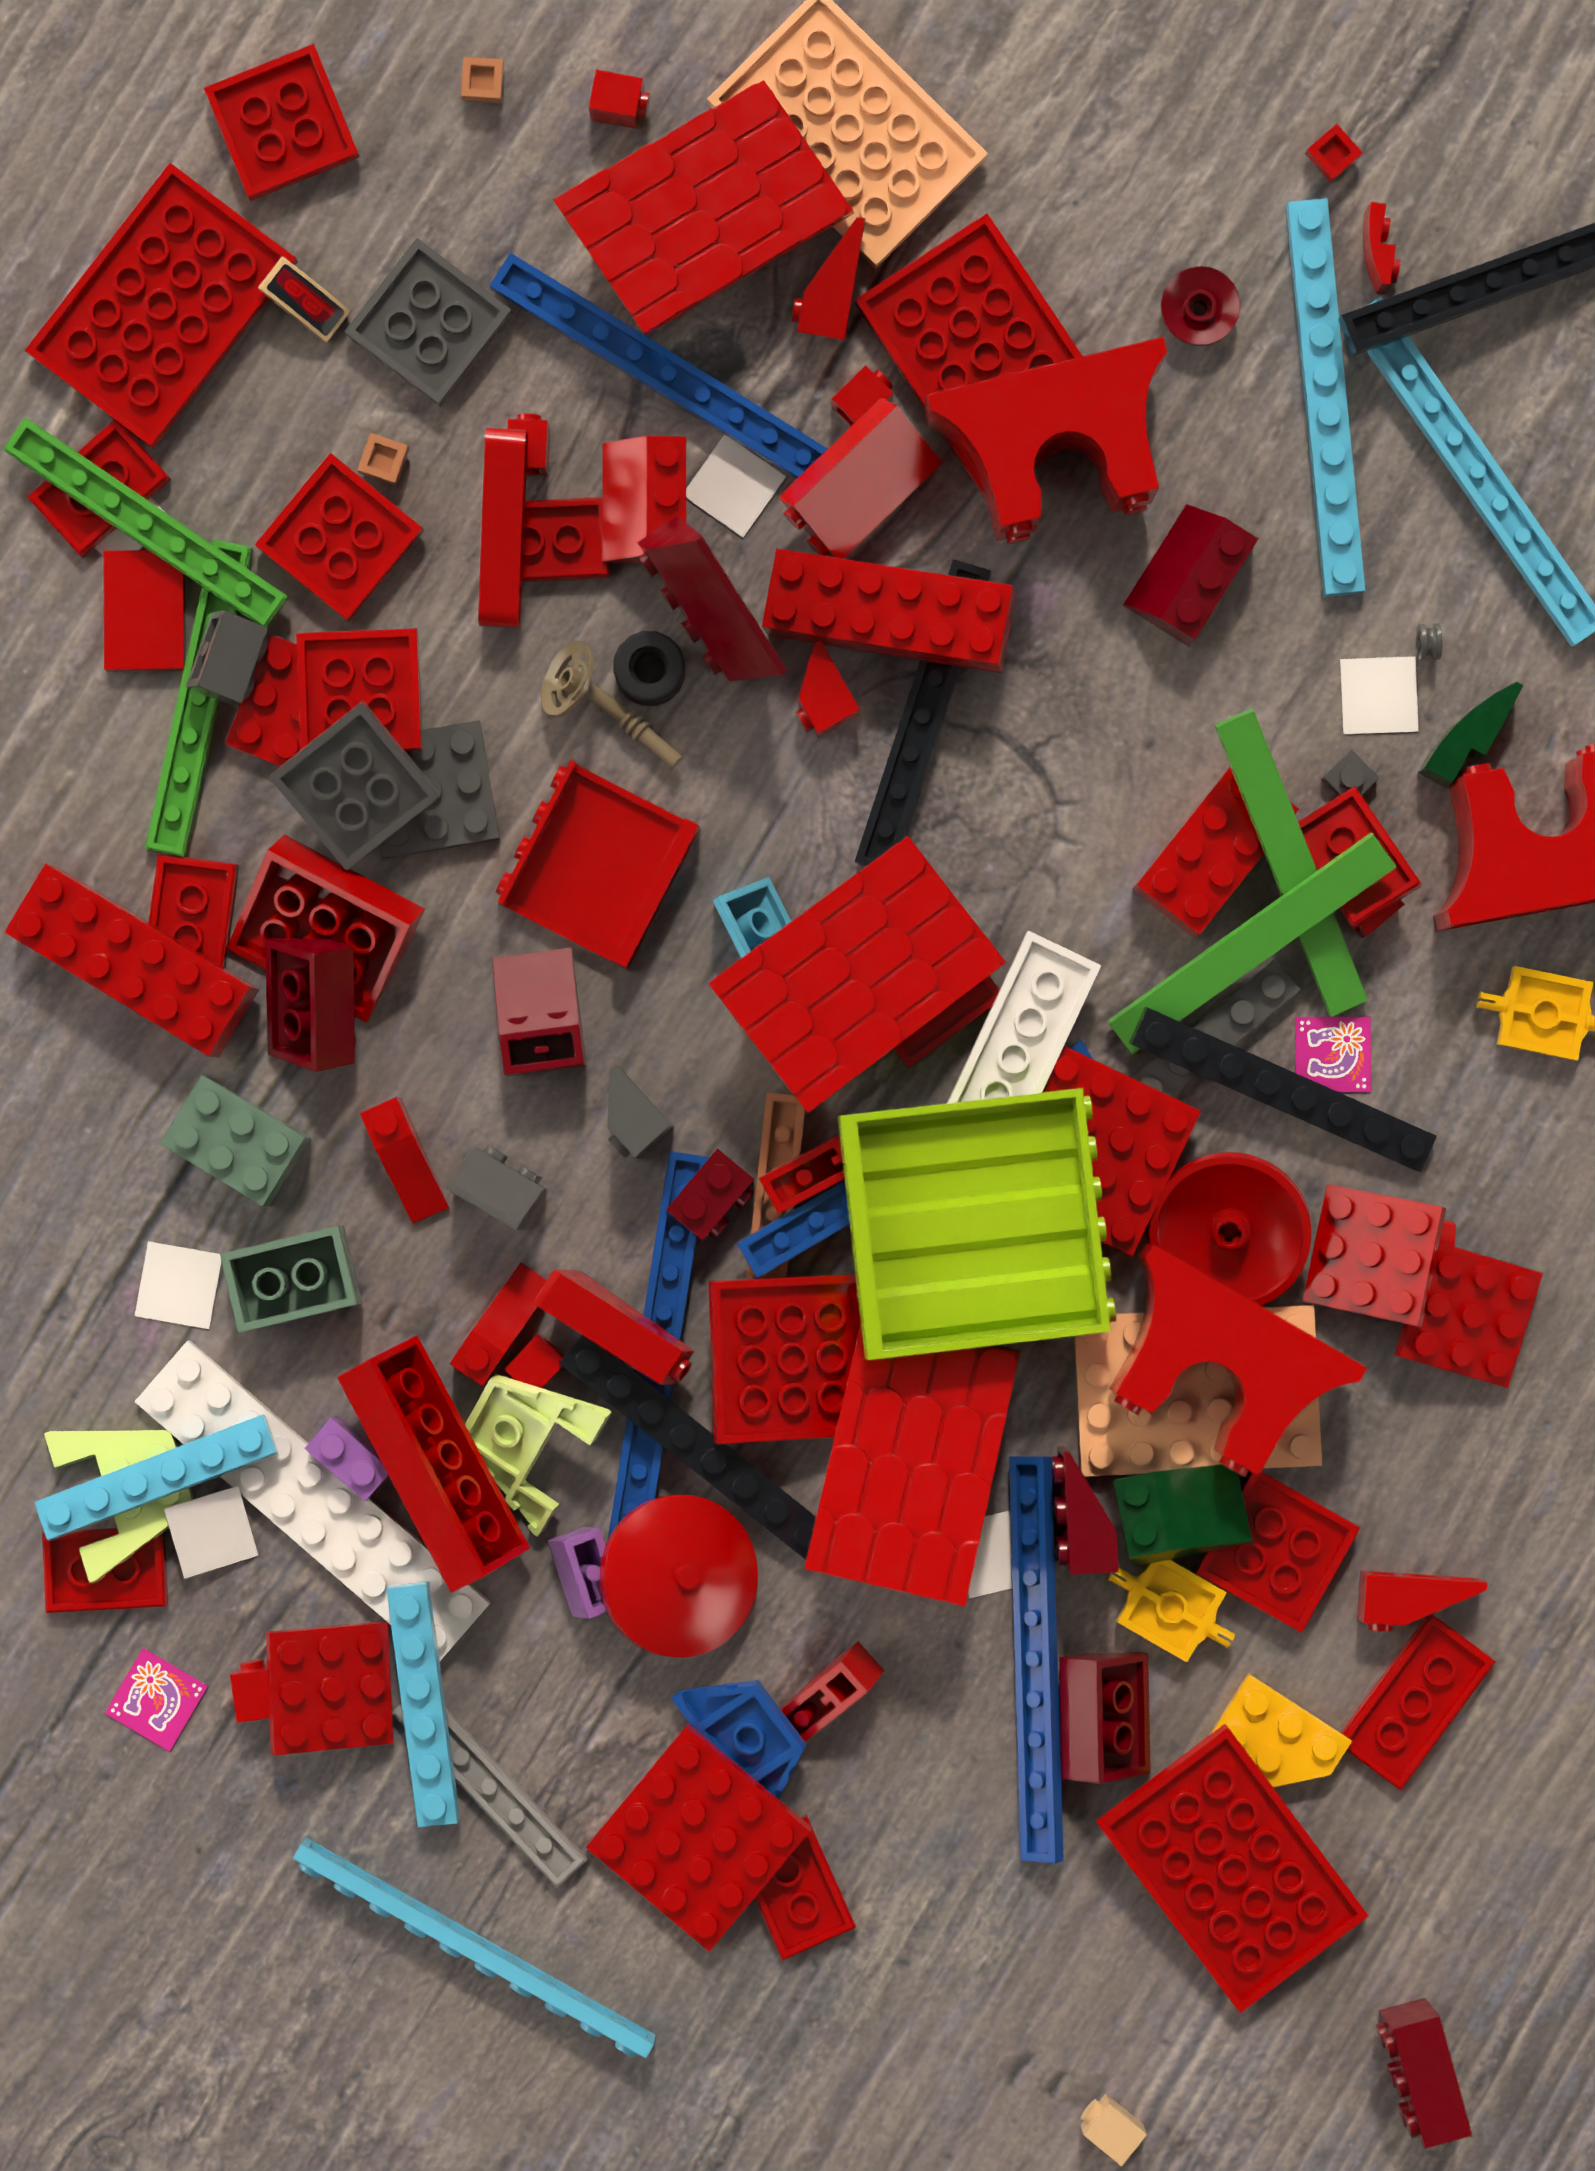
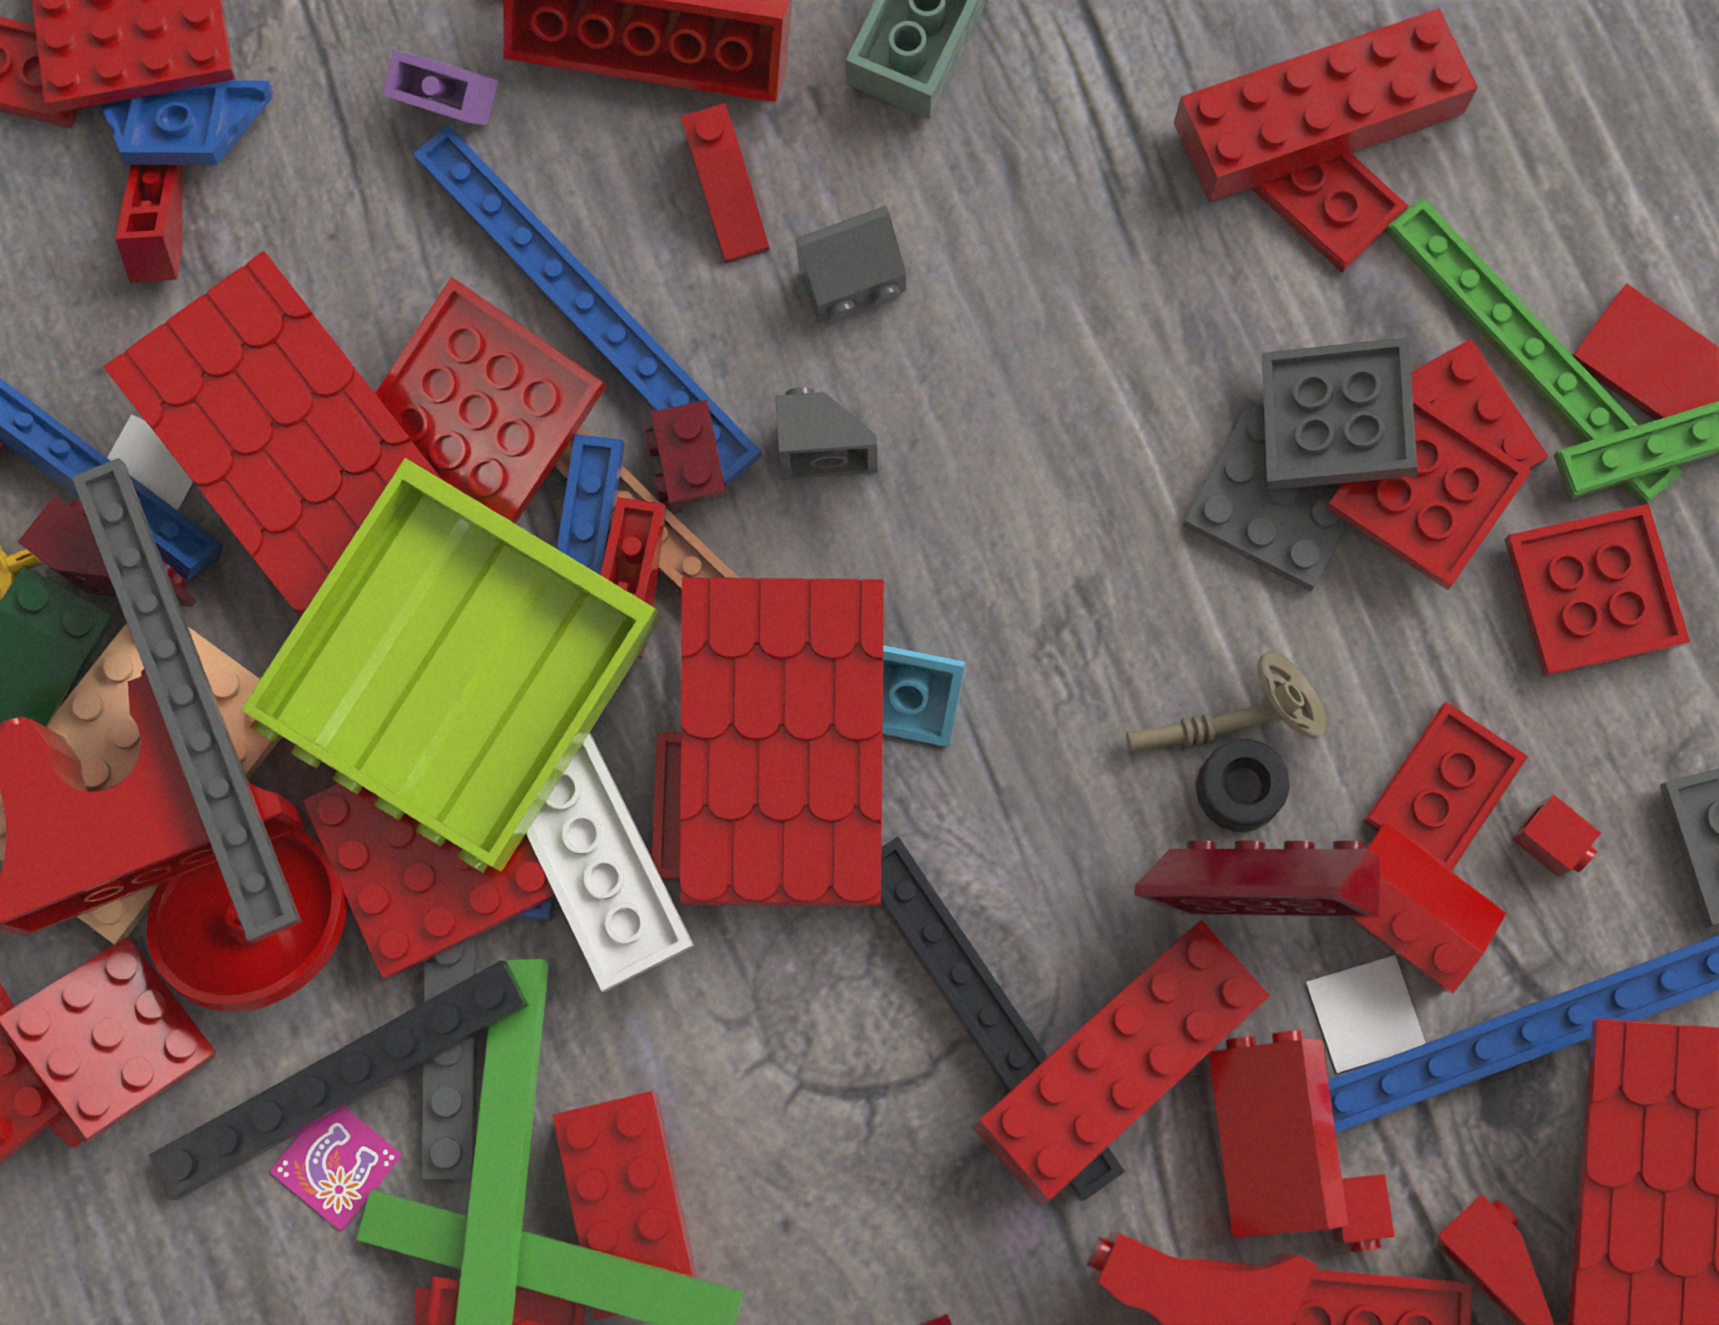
camera: 130 degrees right, 10 degrees down
(227, 658) = (1552, 395): dark grey brick -> none
(235, 1140) = (1083, 76): sand green brick -> none
(310, 1002) = (1159, 230): dark red slope -> none
(317, 898) = (1223, 301): red slope -> none
(383, 459) = (1645, 689): nougat plate -> none
(404, 1159) = (953, 212): red slope -> none
(503, 527) = (1493, 744): red beam -> none
(512, 1429) = (618, 118): yellowish green wing -> none
(536, 1362) = (662, 186): red brick -> none
(538, 1012) = (986, 428): slope -> none
(597, 864) = (1088, 593): red panel -> none
(614, 1325) = (639, 270): red slope -> none
(678, 1576) = (367, 164): red dish -> none
(691, 1443) = (481, 264): black plate -> none
(824, 695) = (1086, 935): red slope -> none
(1132, 1364) = (186, 701): none -> dark grey plate

